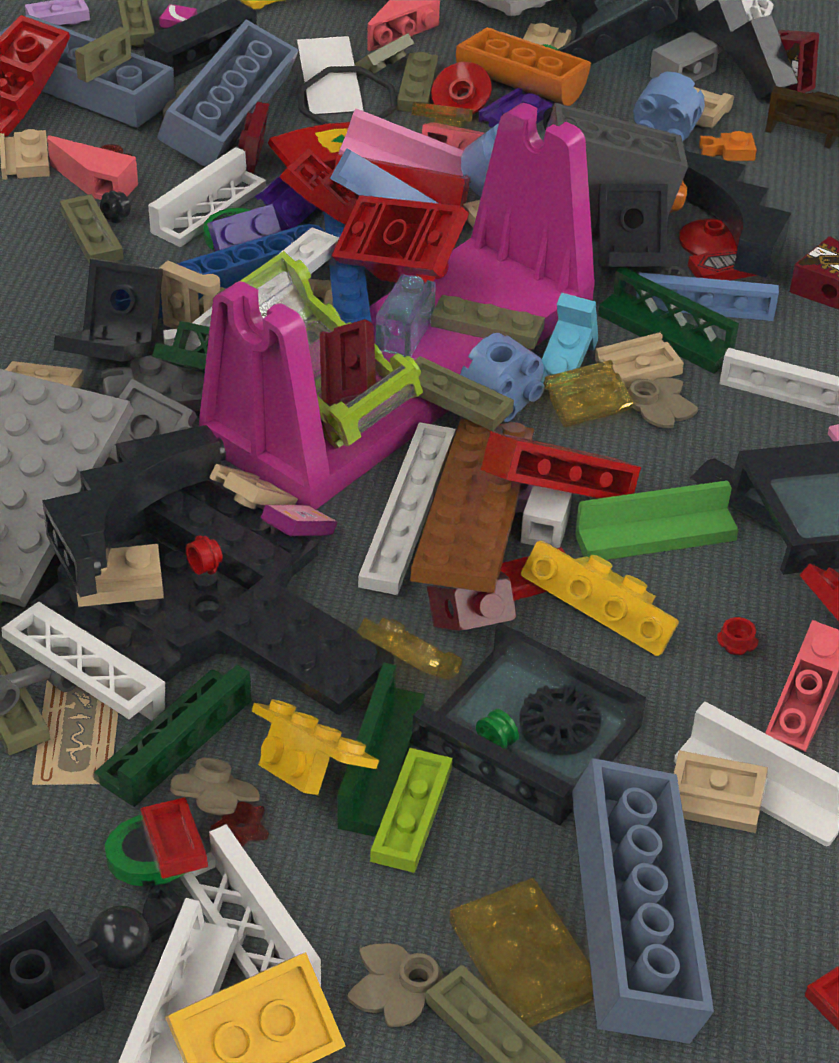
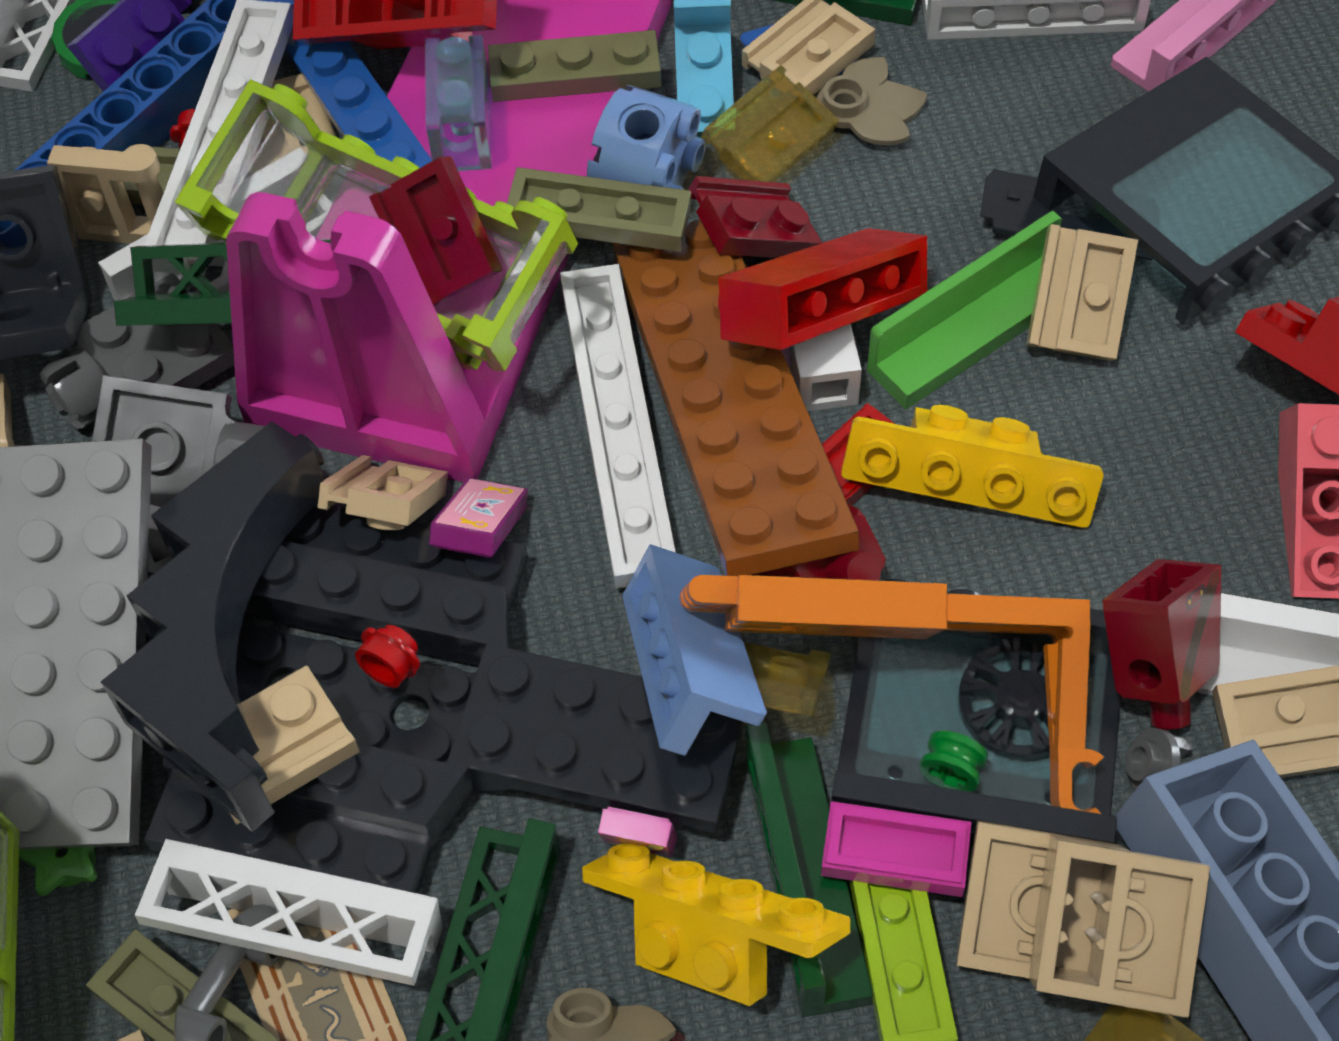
camera: 20 degrees left, 15 degrees up
(295, 694) = (630, 827): none -> tile
(375, 609) = (686, 655): none -> medium blue panel
(435, 757) = (896, 849): none -> dark pink tile
(504, 634) = (920, 612): none -> orange hinge
(518, 819) = (1083, 918): none -> tan bracket
(546, 425) = (752, 217): none -> dark red plate
(657, 710) = (1165, 636): none -> dark red torso
(723, 532) = (1082, 292): none -> tan plate
(738, 636) = (1182, 440): red plate -> none

